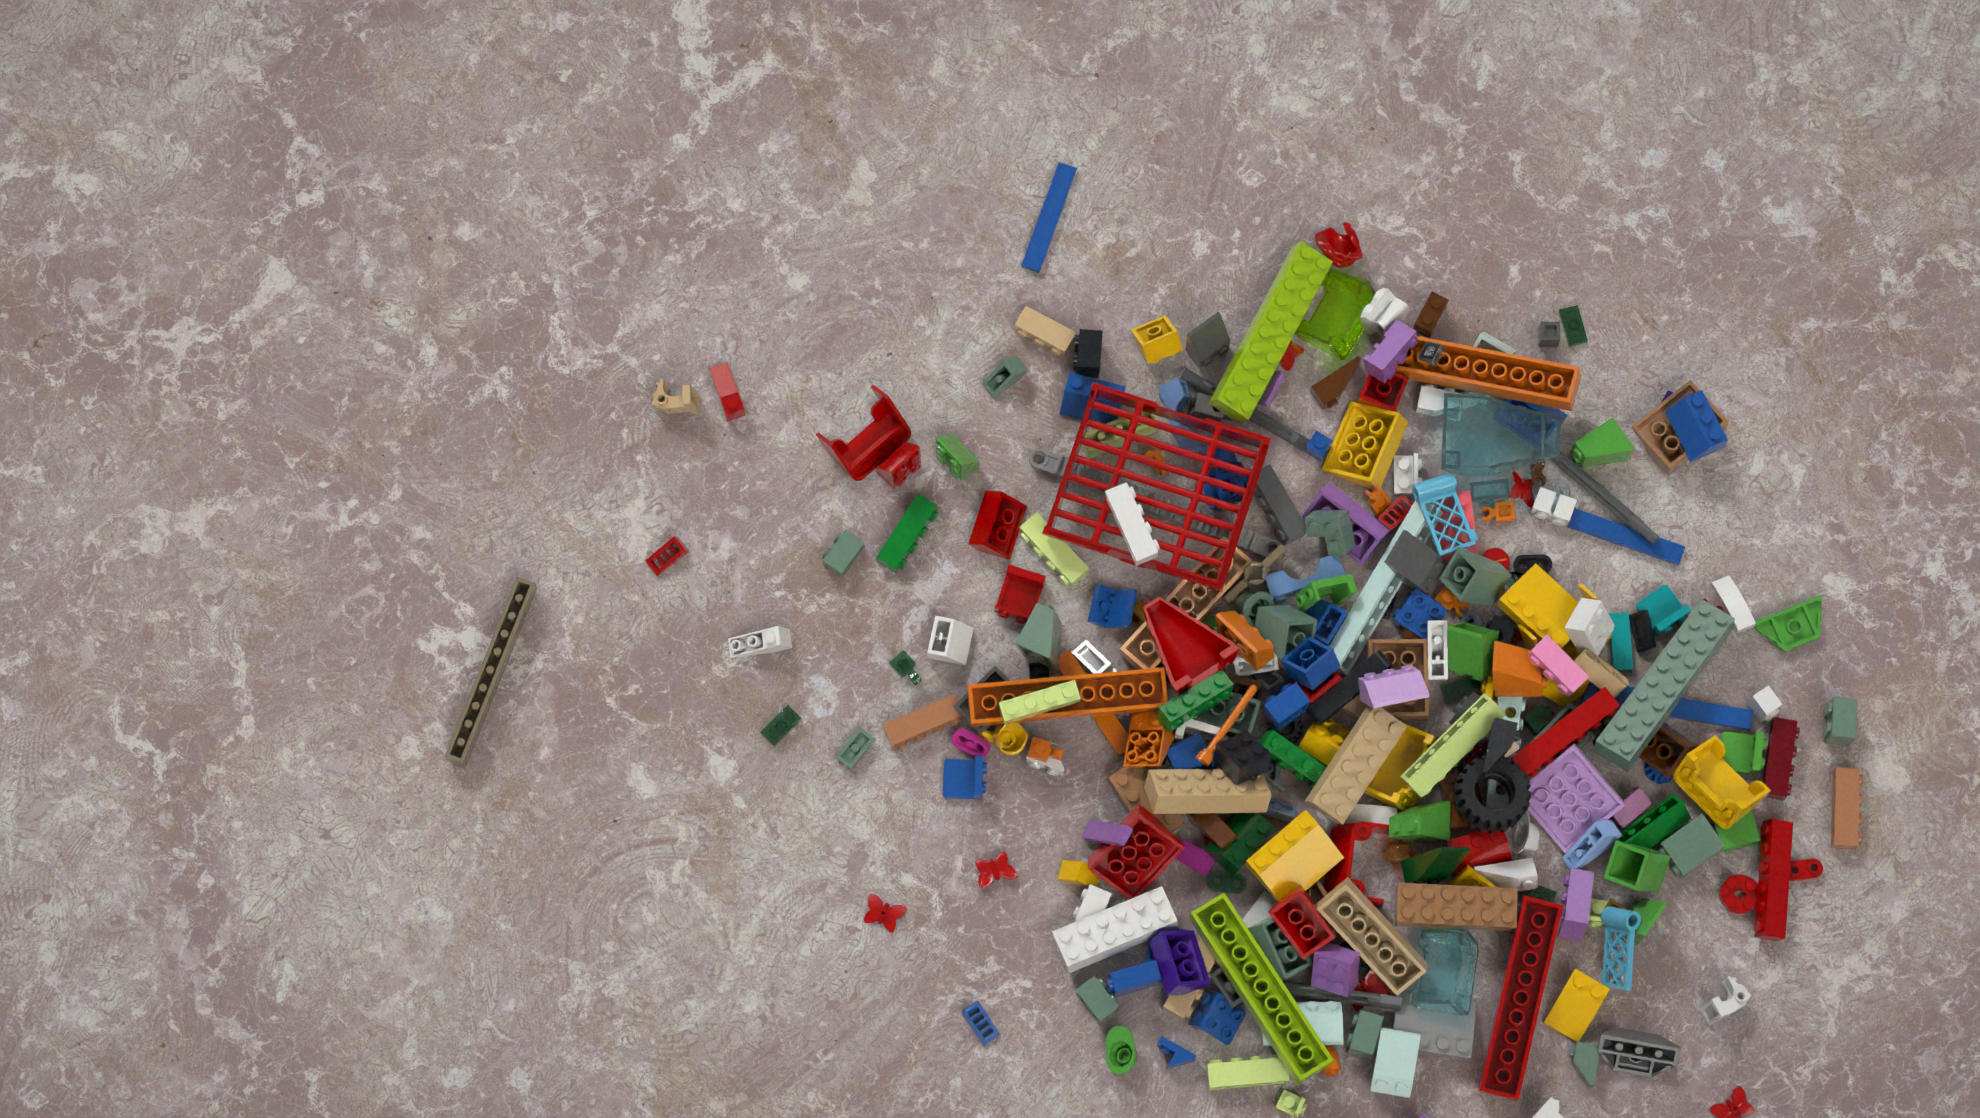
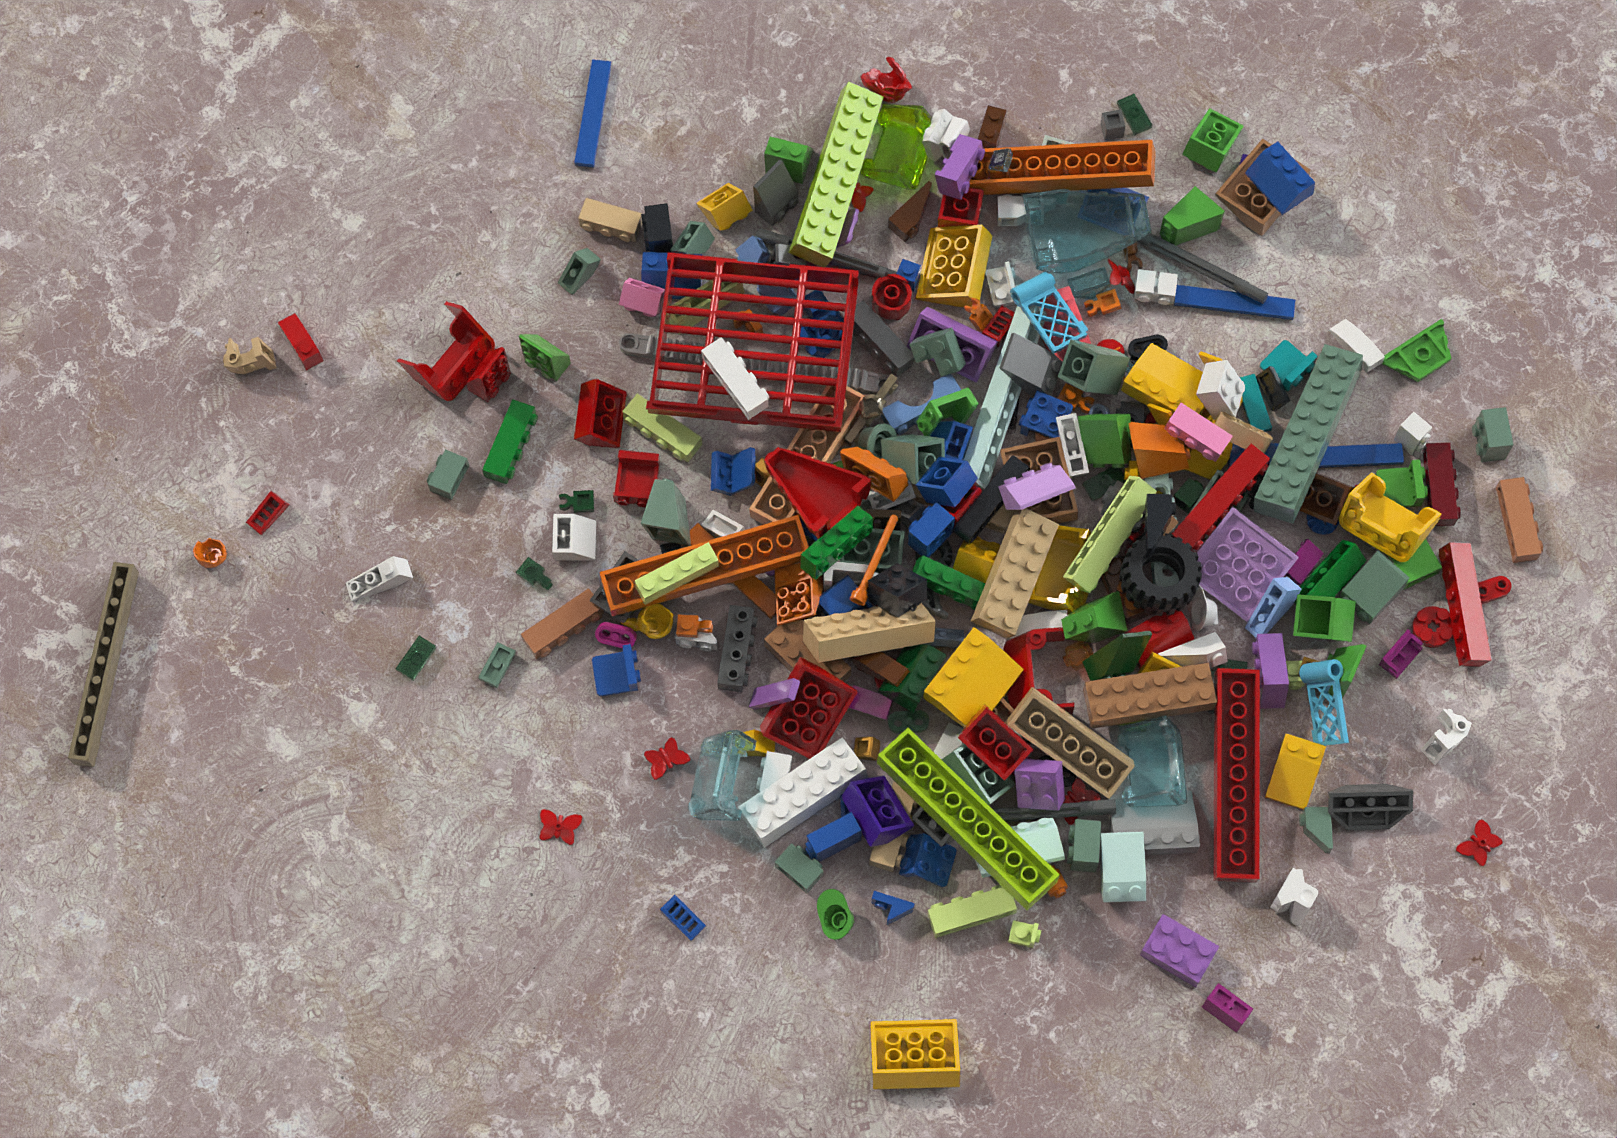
camera: 10 degrees left, 5 degrees down
(607, 584) = (210, 553): none -> orange hair
(963, 606) = (580, 501): none -> dark green plate
(1039, 897) = (716, 776): none -> clear light blue windscreen
(1060, 416) = (642, 297): none -> bright pink brick
(1080, 779) = (736, 648): none -> dark grey brick
(1120, 369) = (694, 239): none -> sand green slope
(1183, 899) = (867, 748): none -> pearl gold slope
(1229, 302) = (794, 156): none -> bright green slope
(1292, 456) = (882, 301): none -> red brick
(1643, 368) = (1212, 140): none -> bright green slope
(1703, 914) = (1401, 654): none -> magenta hinge

